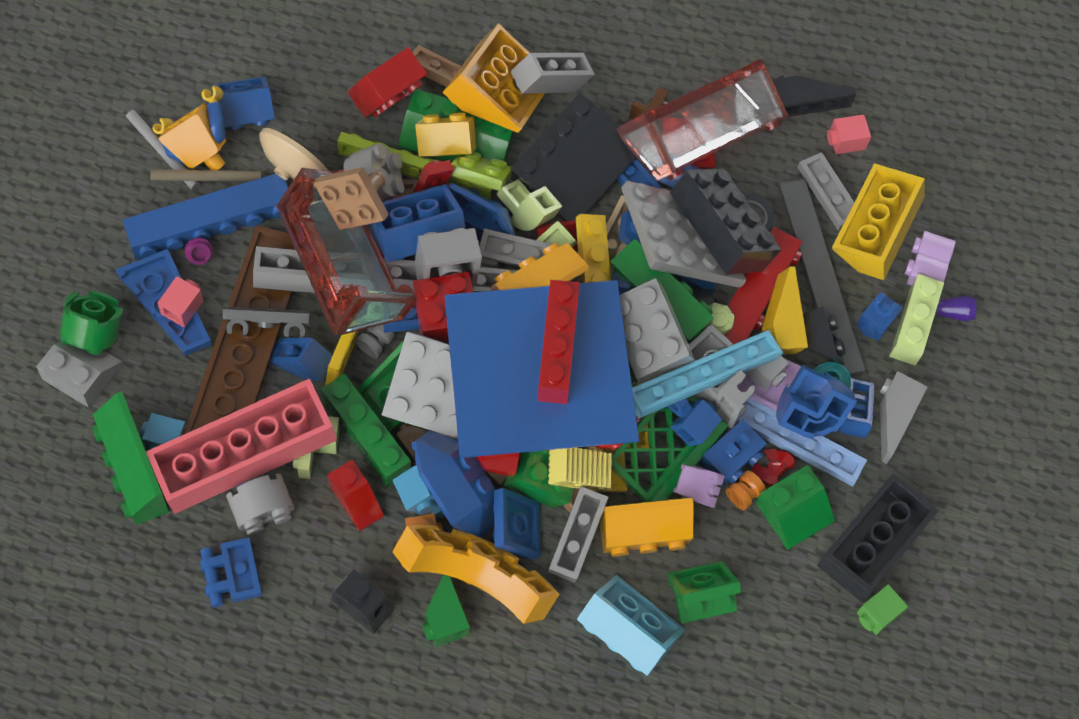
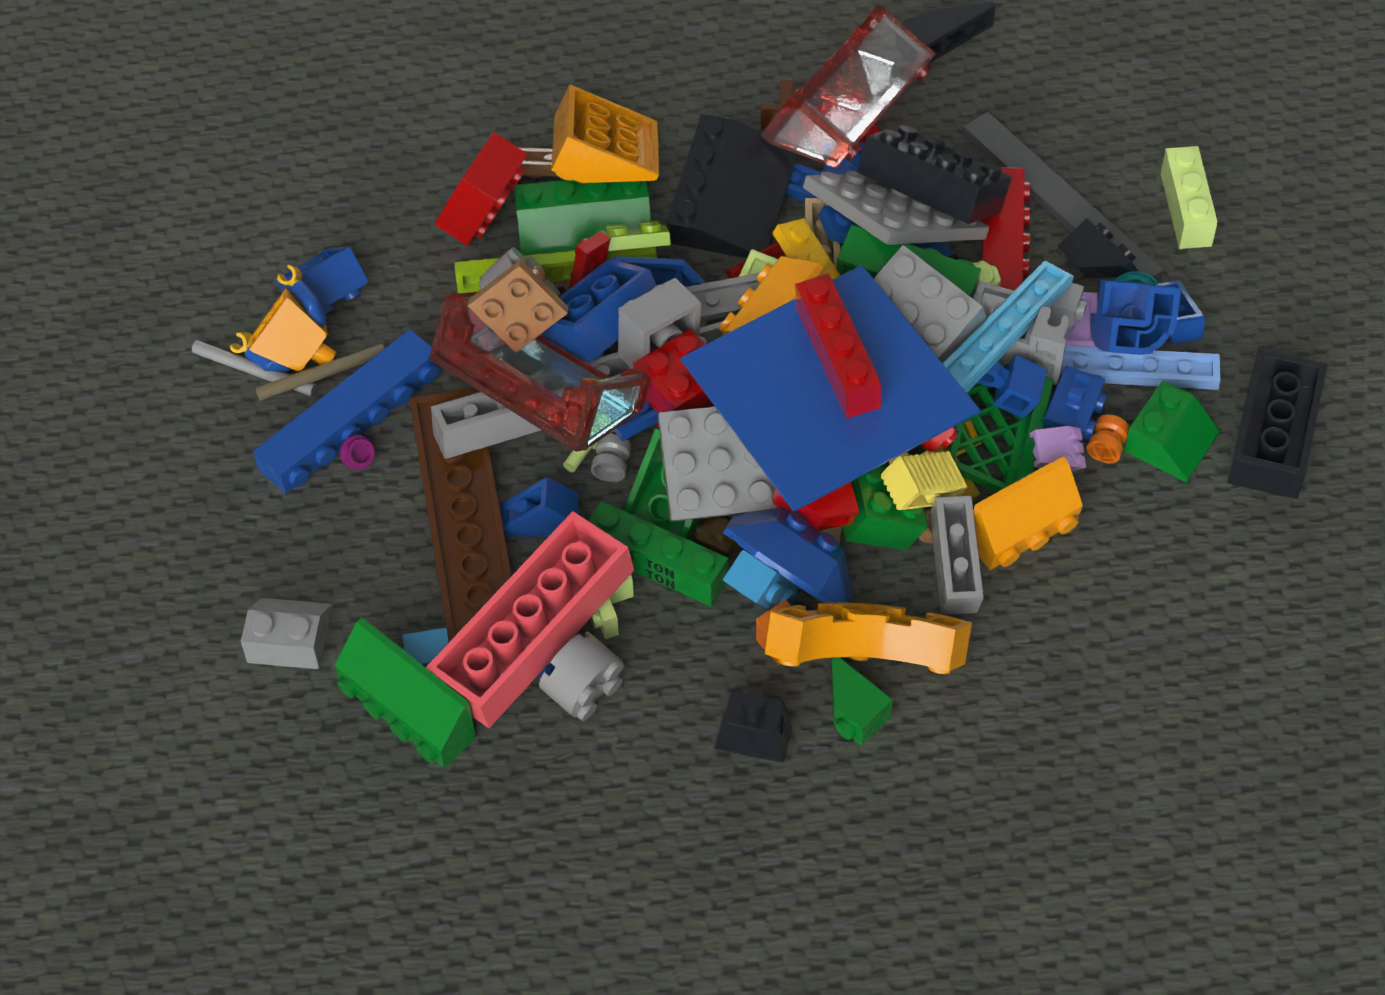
camera: 15 degrees left, 10 degrees down
(90, 321) = (277, 570): green brick -> none
(148, 282) = (348, 516): blue wing -> none
(181, 301) = (370, 506): coral brick -> none
(240, 571) = (595, 759): blue plate -> none
(266, 318) = (480, 483): dark grey plate -> none
(287, 154) = (409, 302): tan dish -> none
(340, 356) = (586, 482): yellow tile -> none
(355, 495) = (681, 624): red slope -> none
(446, 135) = (576, 217): yellow brick -> none
(516, 524) = (881, 574): blue plate -> none
(528, 208) = (711, 257): yellowish green brick -> none
(552, 73) = (657, 109): light grey brick -> none
(630, 624) = (1064, 627): medium azure slope -> none
(704, 591) = (1125, 557): green bracket -> none
(779, 463) = (1127, 401): red piece -> none
(785, 314) = (1050, 240): yellow slope -> none
(827, 188) = (1021, 112): light grey plate -> none
(849, 134) = (1009, 49): coral brick -> none
(879, 220) = (1092, 116): yellow slope -> none
(879, 316) = (1147, 210): blue brick -> none
(881, 610) = (1323, 494): bright green brick -> none
(896, 410) = (1221, 294): light grey slope -> none
(931, 257) = (1165, 129): lavender brick -> none
(957, 308) = (1226, 169): dark purple cone -> none

